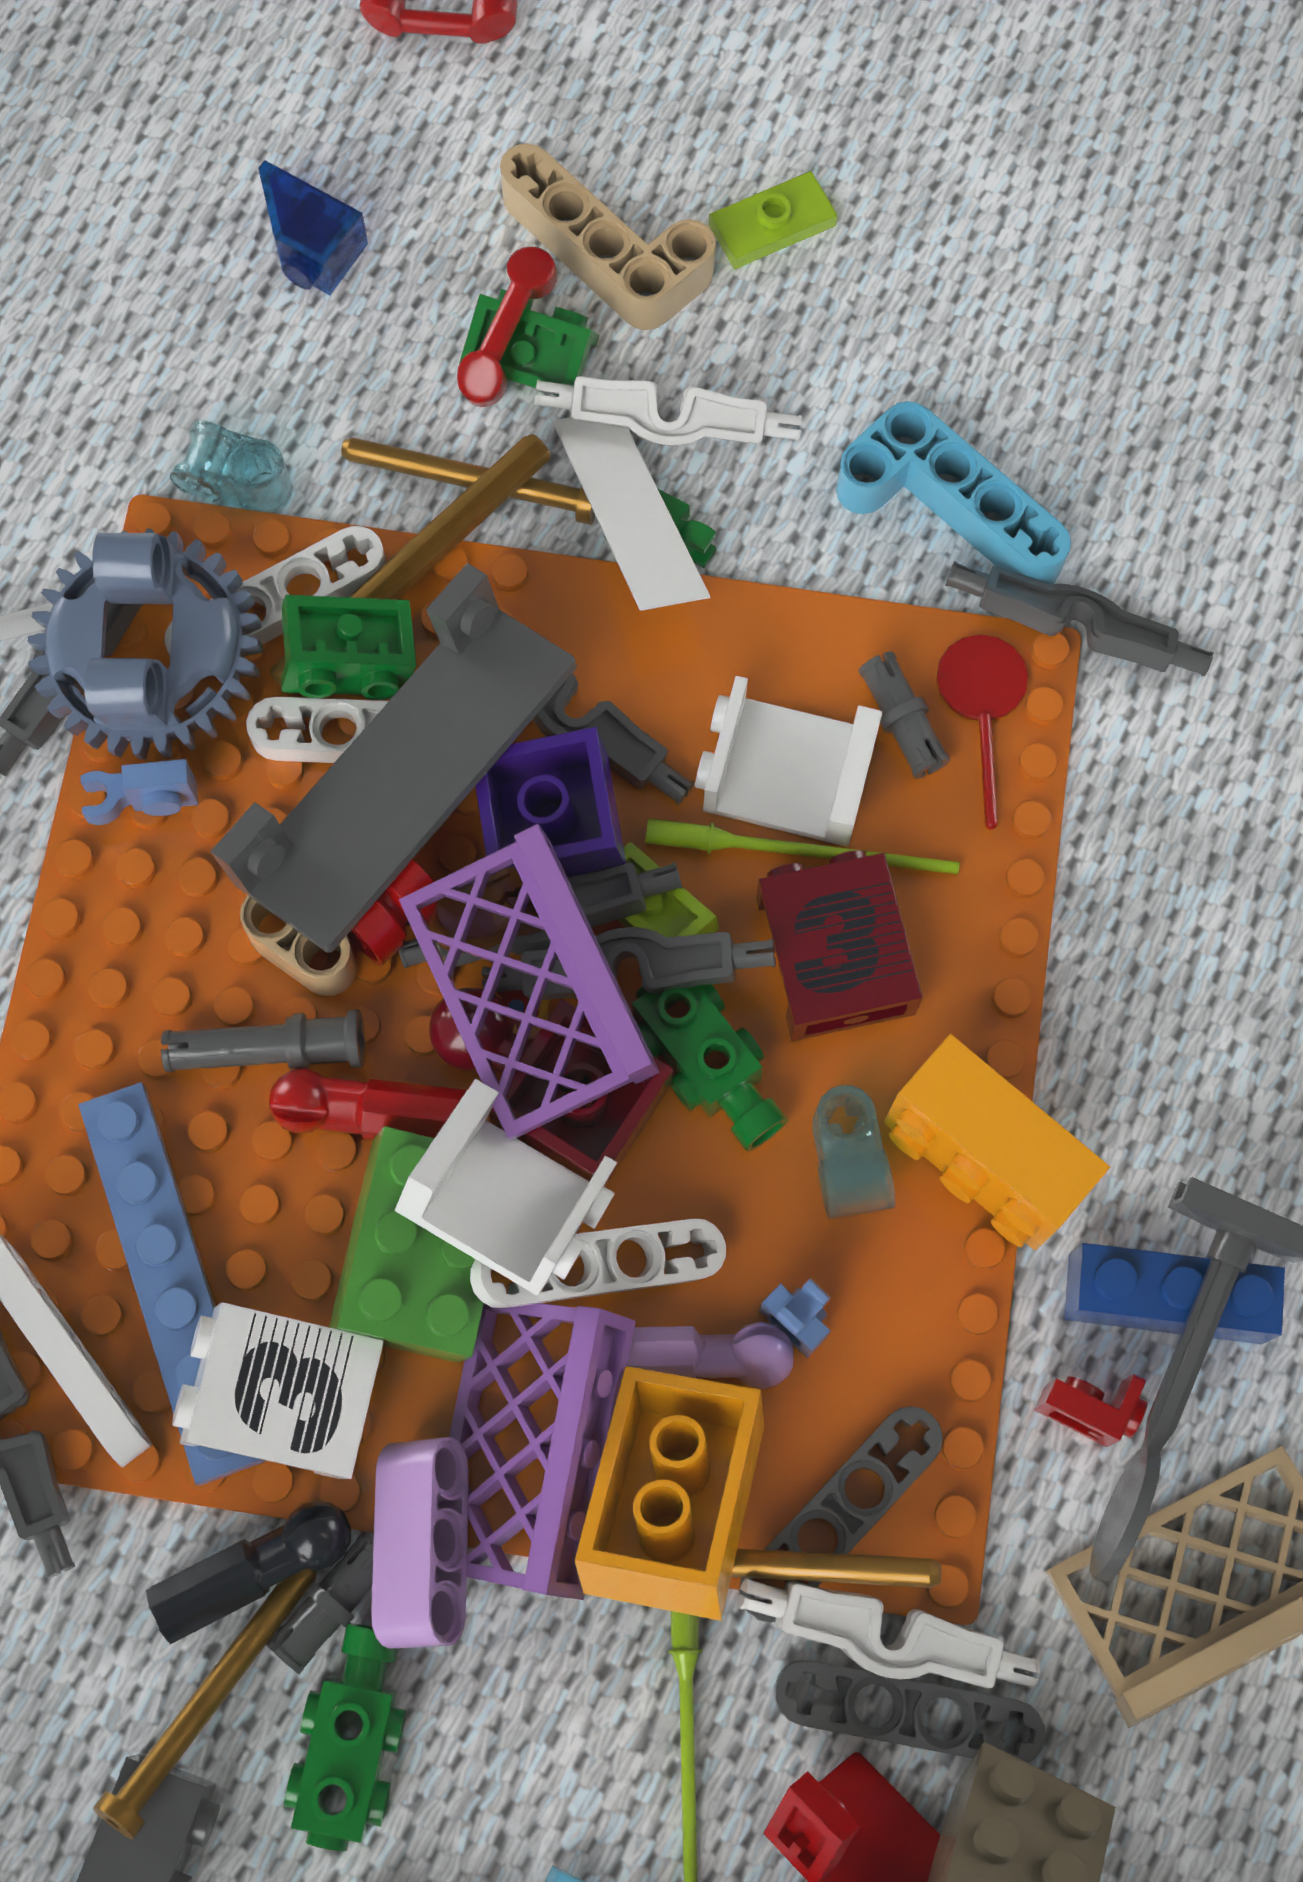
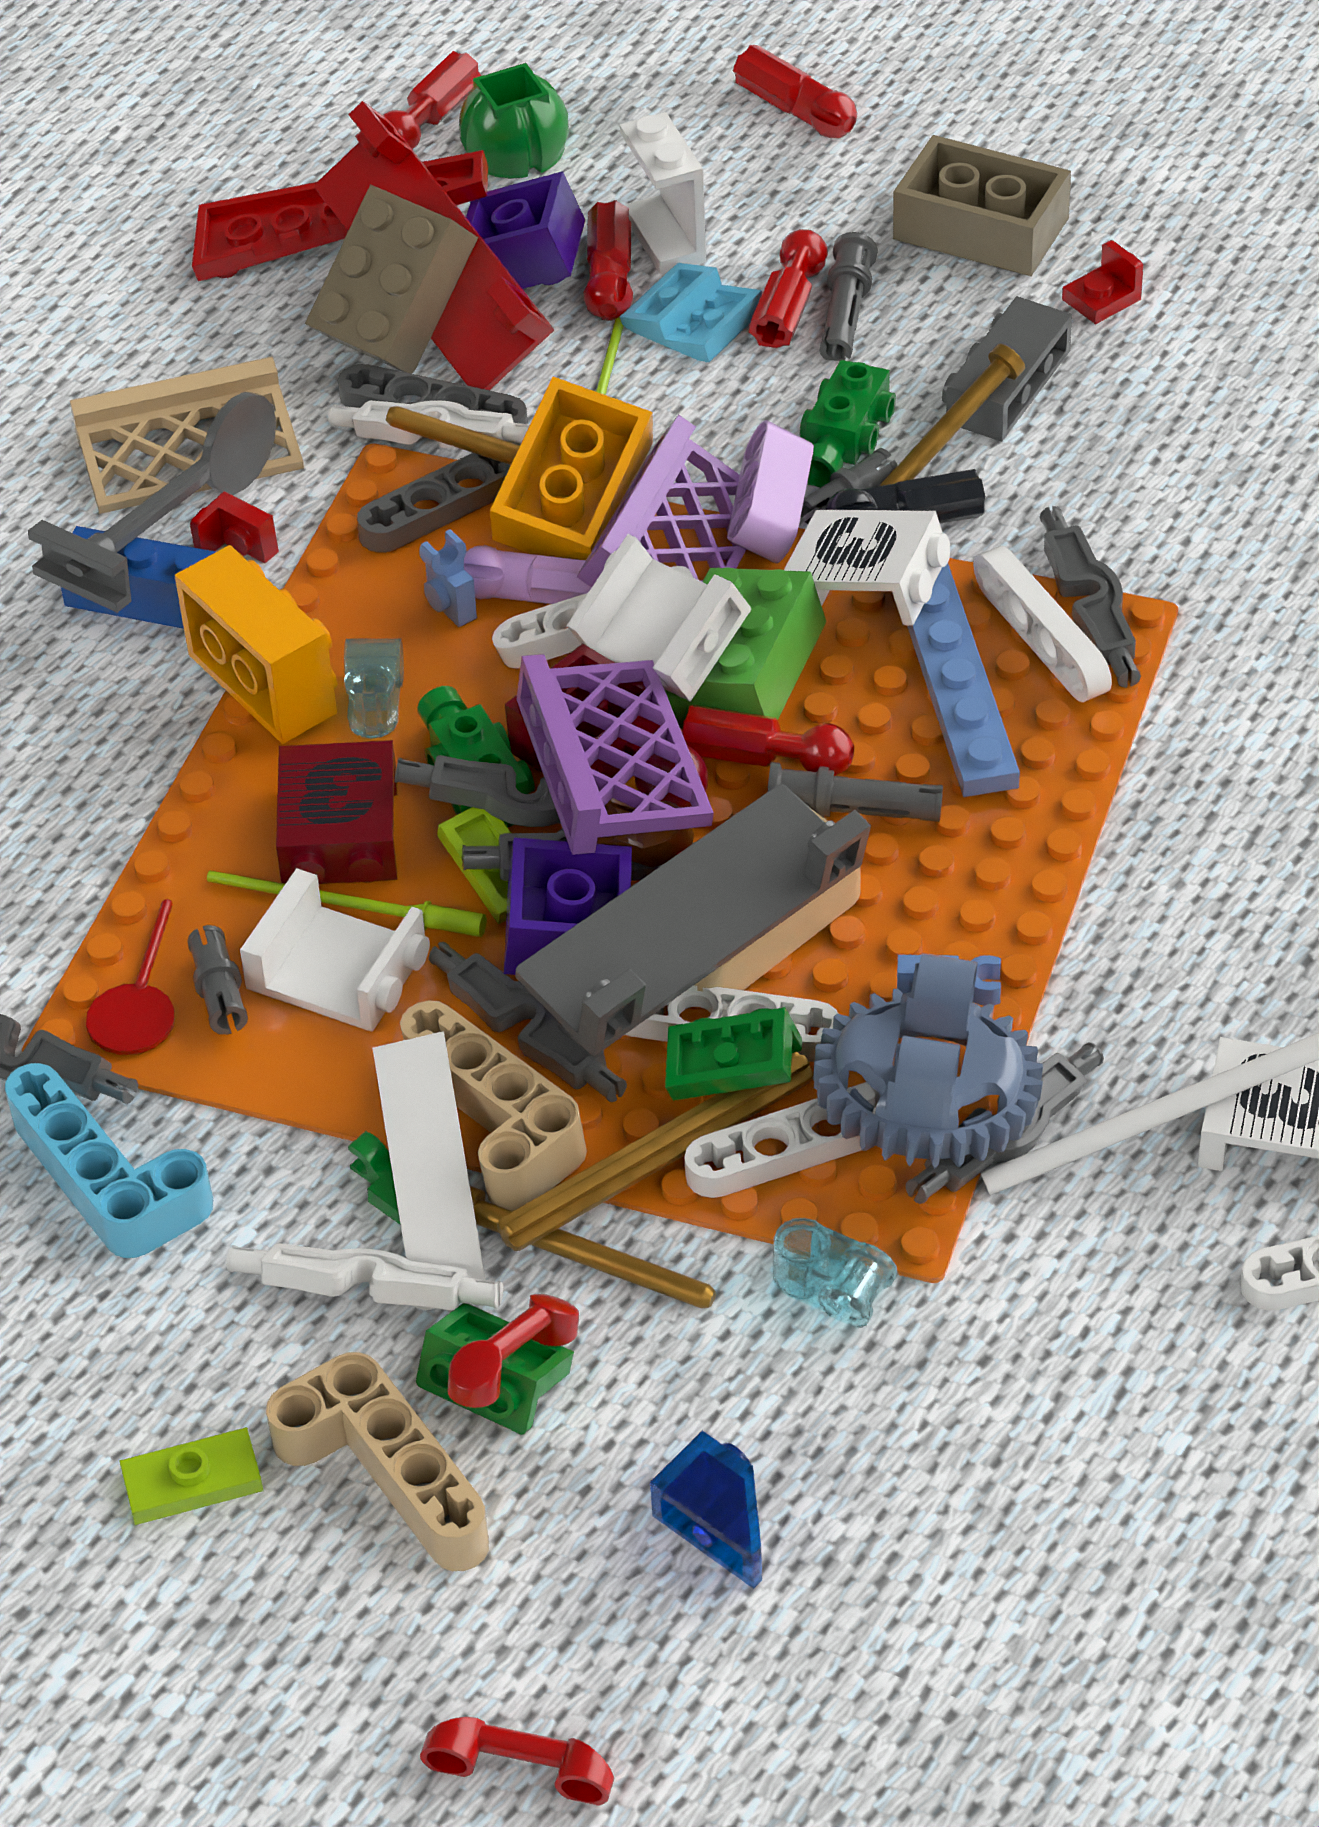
camera: 165 degrees left, 25 degrees down
(597, 595) = (531, 1121): none -> tan beam

